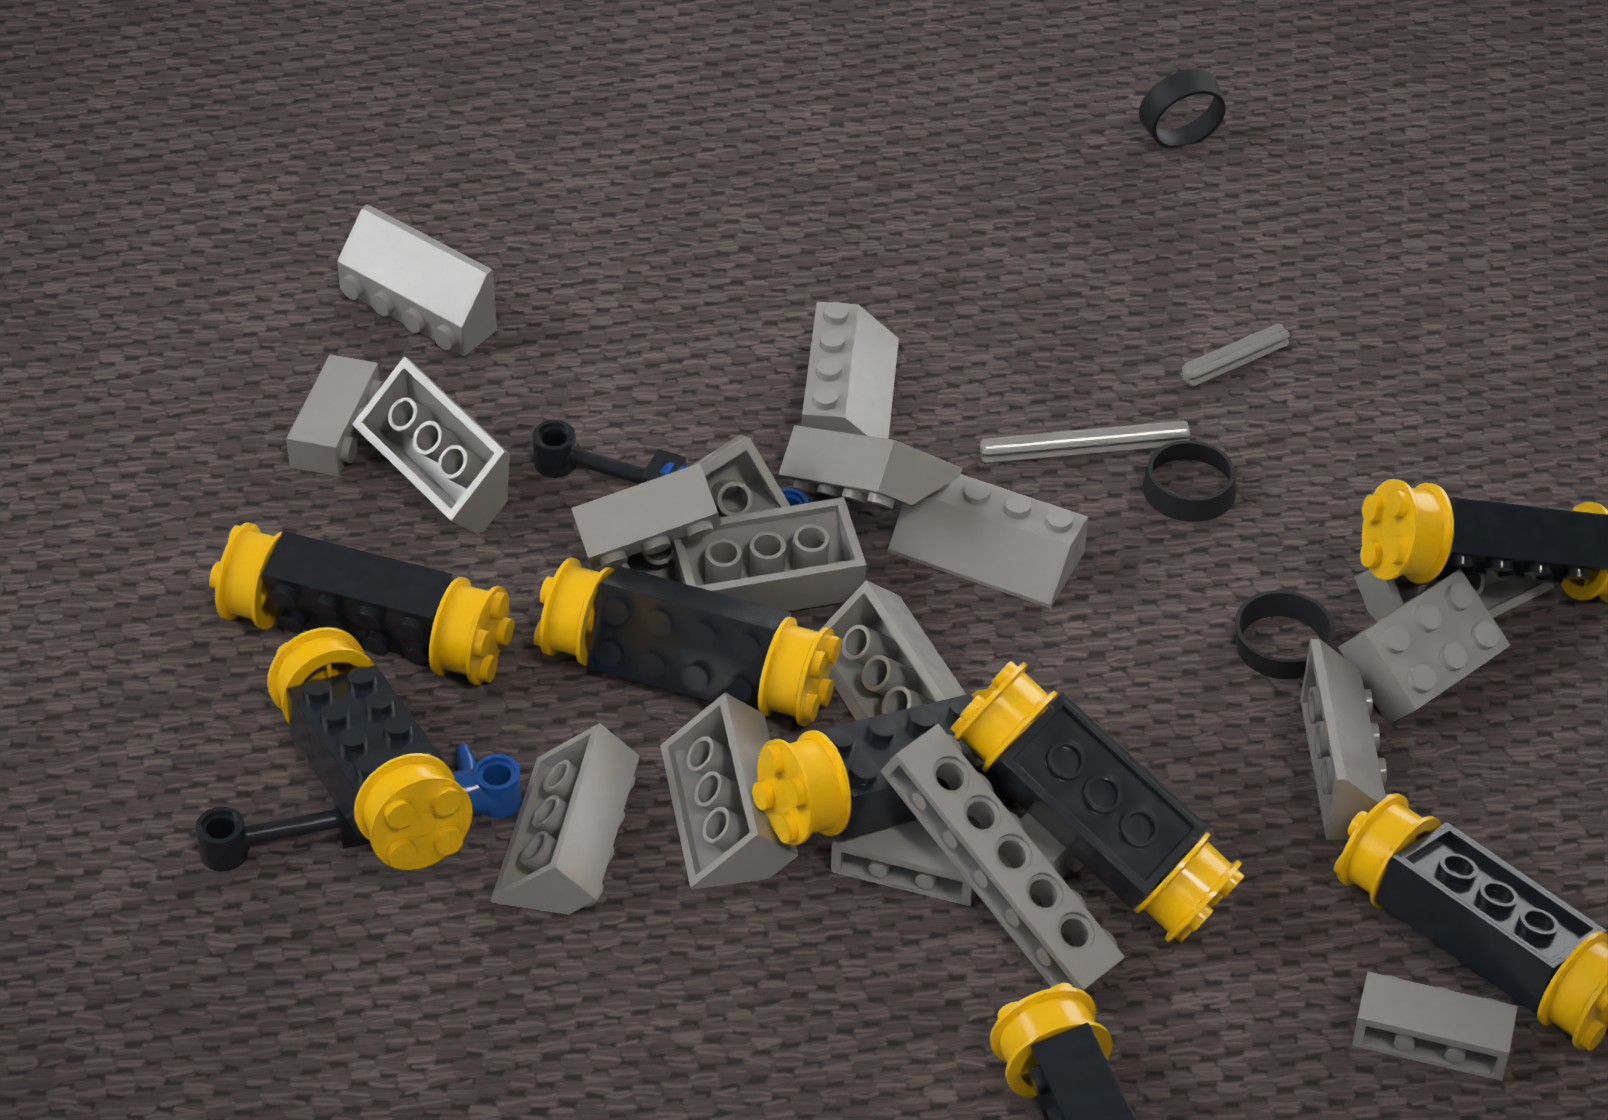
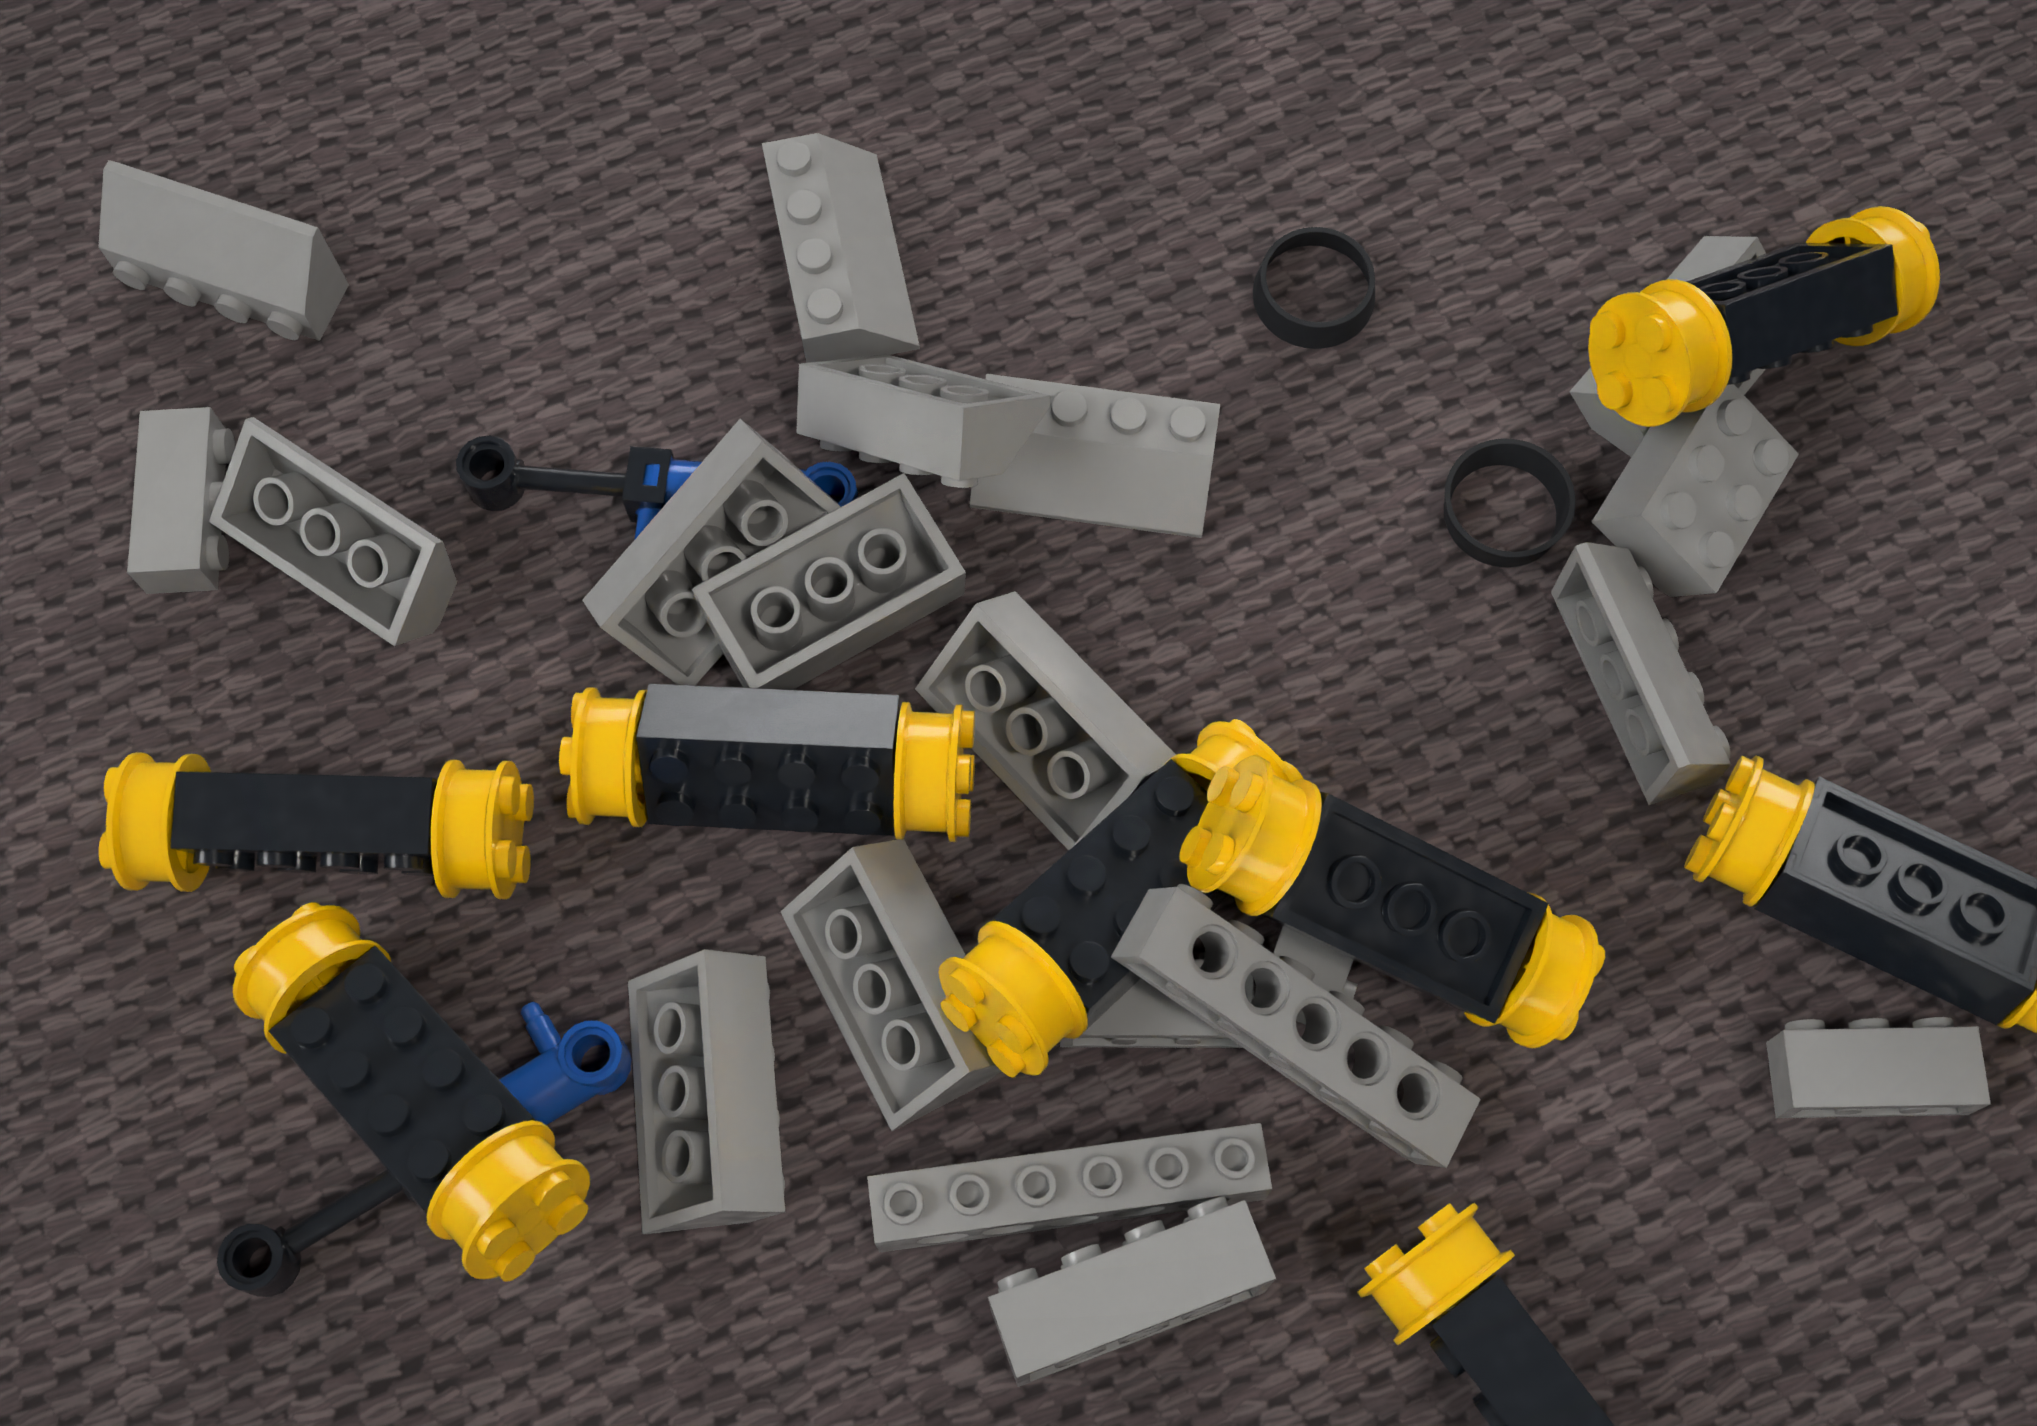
camera: 15 degrees left, 25 degrees up
(647, 517) = (662, 602): light grey brick -> none
(804, 939) = (1067, 1187): none -> light grey brick
(824, 998) = (1131, 1291): none -> light grey brick
(1082, 441) = (1163, 259): light grey axle -> none
(1235, 355) = (1307, 64): light grey axle -> none

